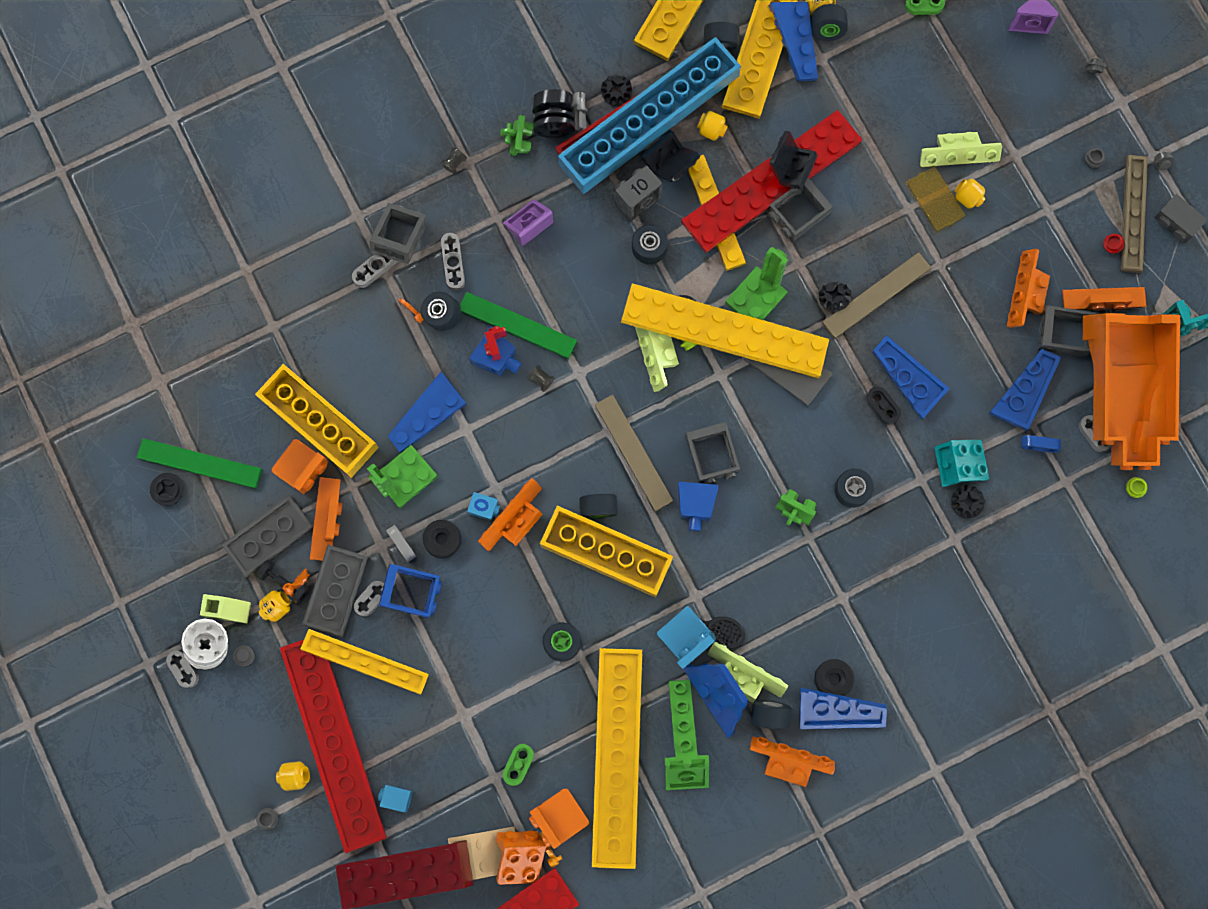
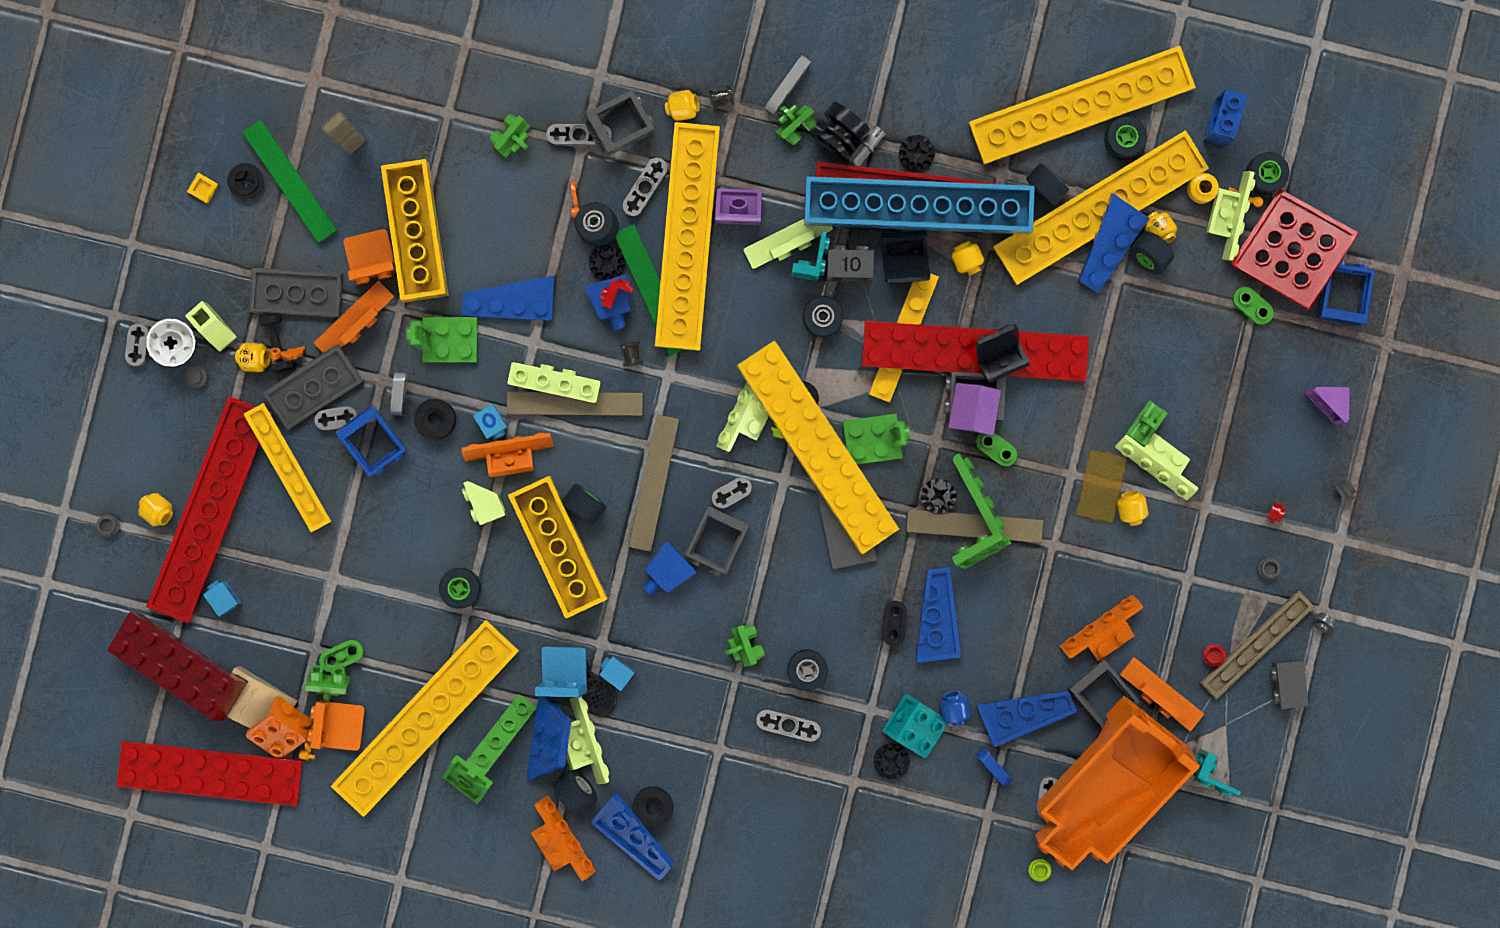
camera: 35 degrees right, 10 degrees up
(140, 520) = (202, 188): none -> yellow tile
(209, 385) = (344, 133): none -> dark tan tile
(333, 303) = (513, 136): none -> bright green hips
(431, 187) = (682, 105): none -> yellow head
(463, 339) = (617, 261): none -> black gear
(491, 115) = (788, 85): none -> light grey beam
(504, 440) = (554, 382): none -> yellowish green bracket
(511, 269) = (687, 236): none -> yellow plate
(526, 793) = (327, 684): none -> bright green hips
(527, 565) = (486, 503): none -> yellowish green slope
(531, 446) = (550, 404): none -> dark tan tile
(579, 219) = (783, 242): none -> yellowish green bracket
(615, 217) = (804, 269): none -> teal bracket
(697, 415) = (728, 488): none -> light grey beam
(724, 605) = (616, 672): none -> dark azure brick
(806, 214) = (974, 408): none -> medium lavender slope
(844, 235) = (996, 449): none -> bright green plate
(886, 526) = (806, 723): none -> light grey beam
(898, 294) = (985, 545): none -> bright green bracket
(927, 130) = (1146, 423): none -> bright green hips
(977, 426) = (955, 708): none -> blue head
(1065, 117) = (1276, 513): none -> red plate

